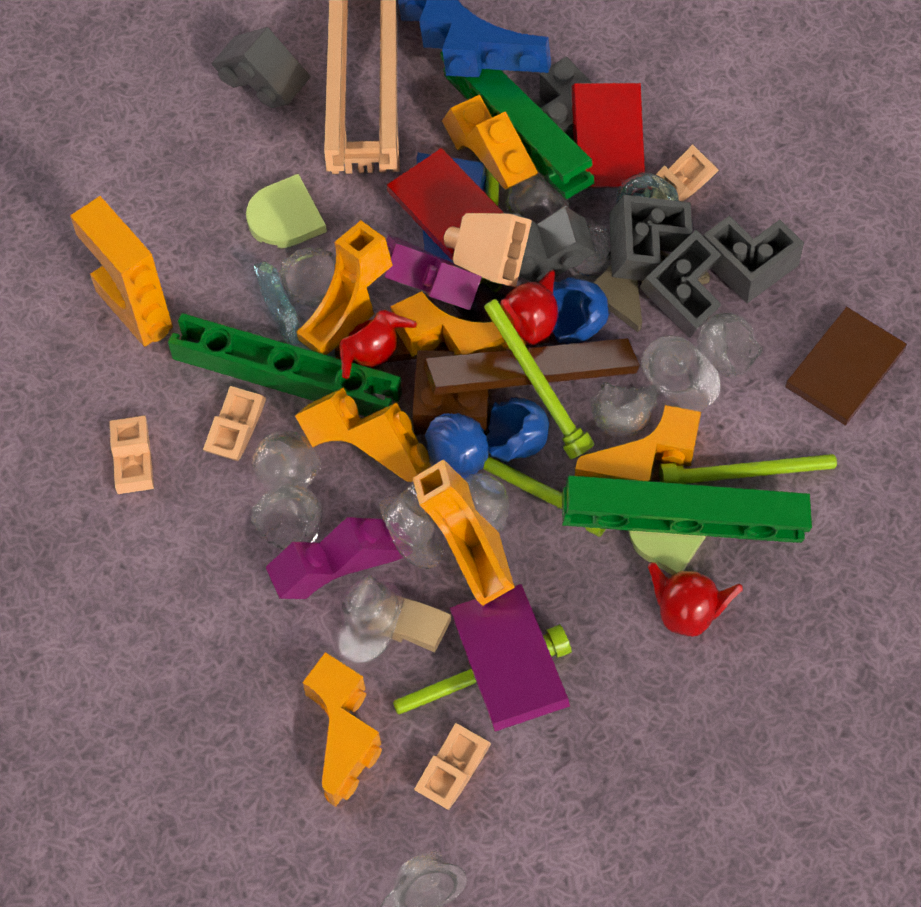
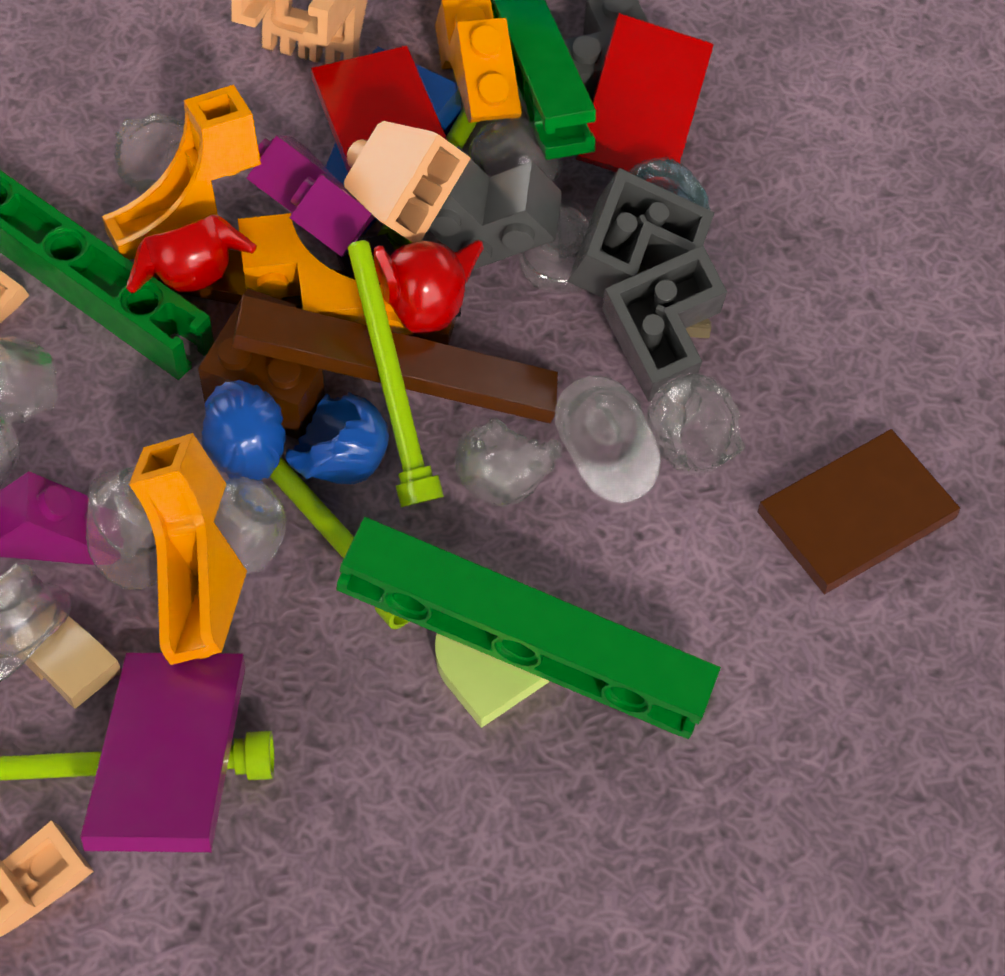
camera: 15 degrees right, 5 degrees down
(281, 310) = (103, 174): clear light blue tile -> none
(284, 214) = (169, 70): yellowish green tile -> none
(382, 435) = (146, 386): light orange arch -> none
(580, 310) = (500, 309): blue hair -> none
(622, 298) = (571, 315): dark tan tile -> none
(670, 442) = (553, 528): light orange arch -> none
(677, 474) = (542, 577): lime piece -> none
(688, 172) = (739, 188): light nougat slope -> none
(689, 600) = (477, 762): red piece -> none
(757, 263) = (779, 325): dark grey brick -> none

